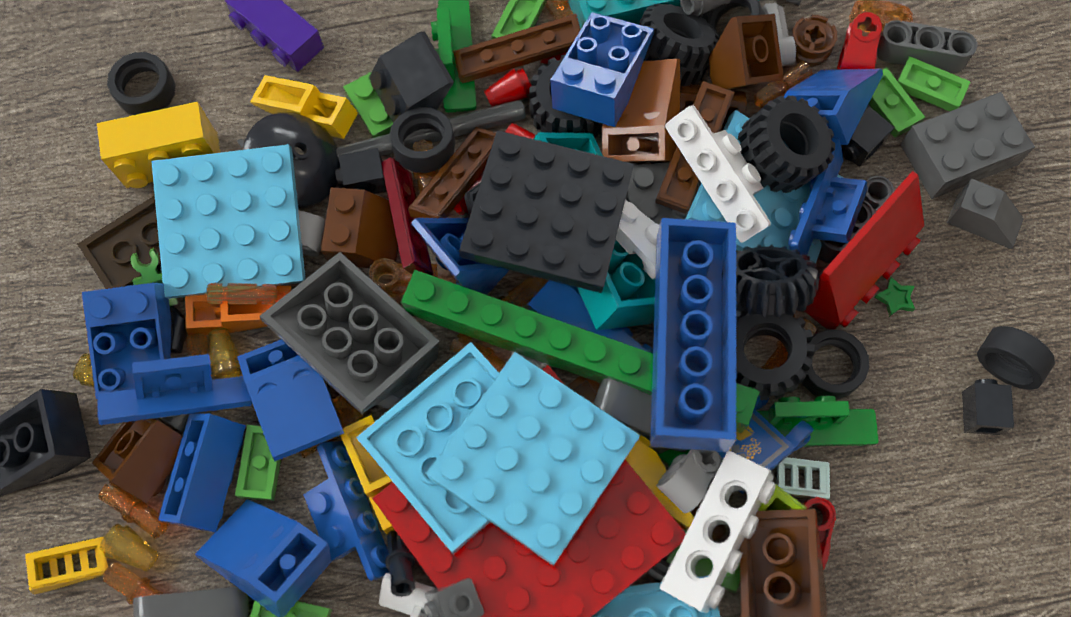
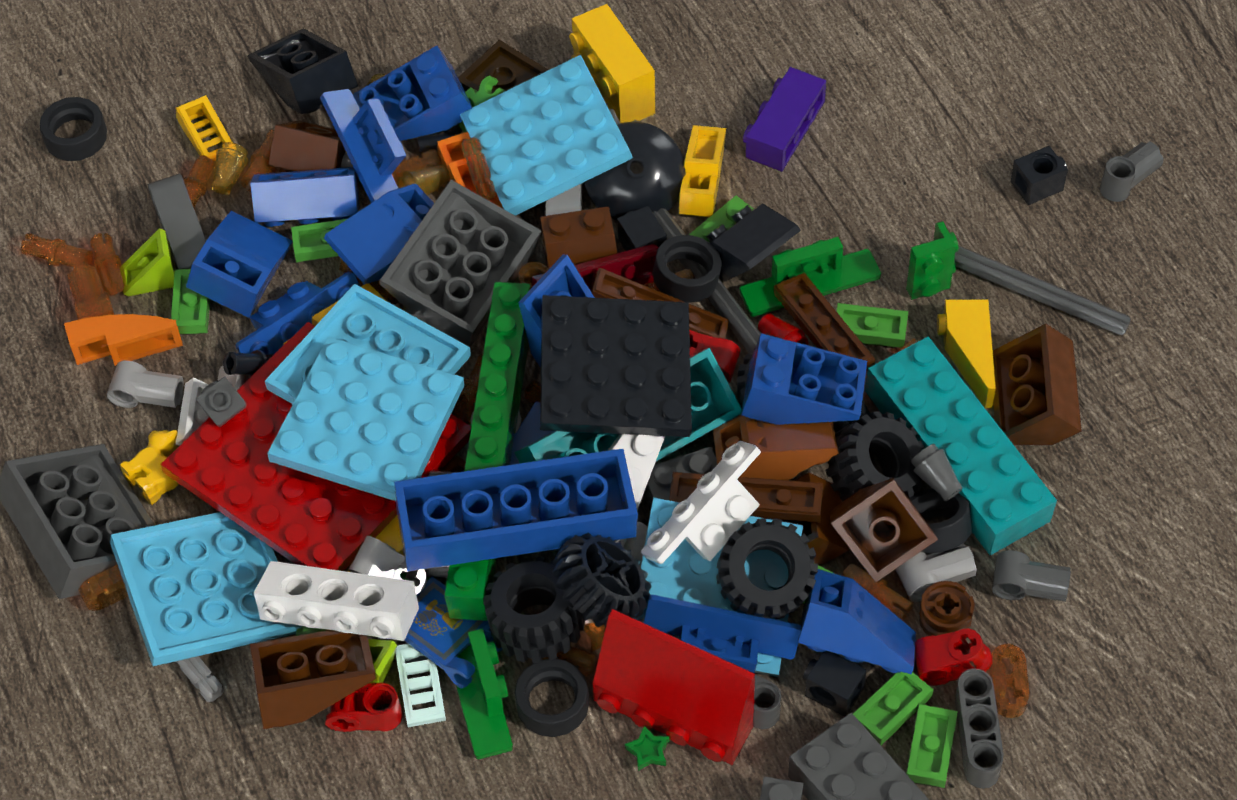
camera: 75 degrees right, 15 degrees down
(128, 67) = (682, 17): black tyre -> none

